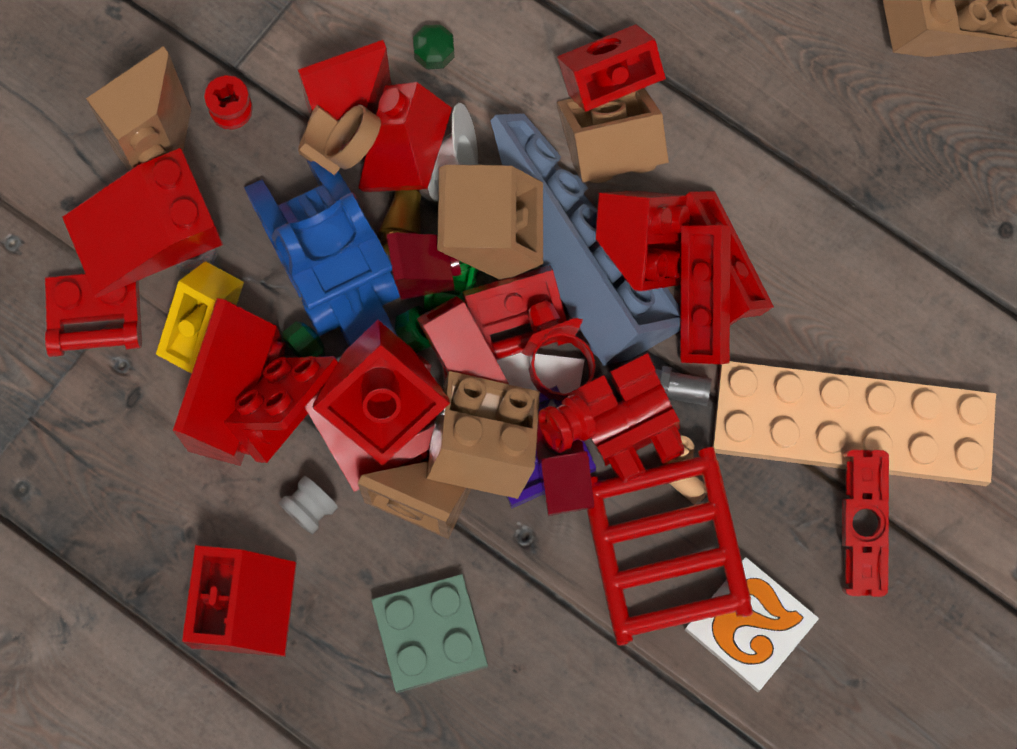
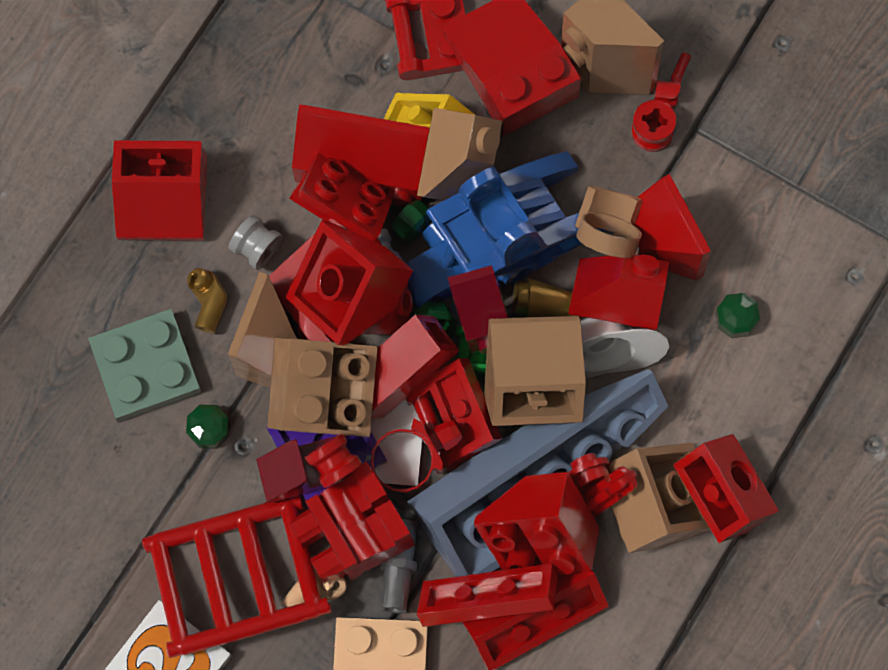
camera: 90 degrees right, 0 degrees up
(193, 87) = (669, 91): none -> red hand
(245, 272) = (456, 151): none -> medium nougat slope
(362, 558) = (211, 297): none -> pearl gold arm
(503, 569) = (207, 426): none -> dark green tile
(588, 185) = (588, 470): none -> red plate
(611, 165) = (610, 490): none -> red axle

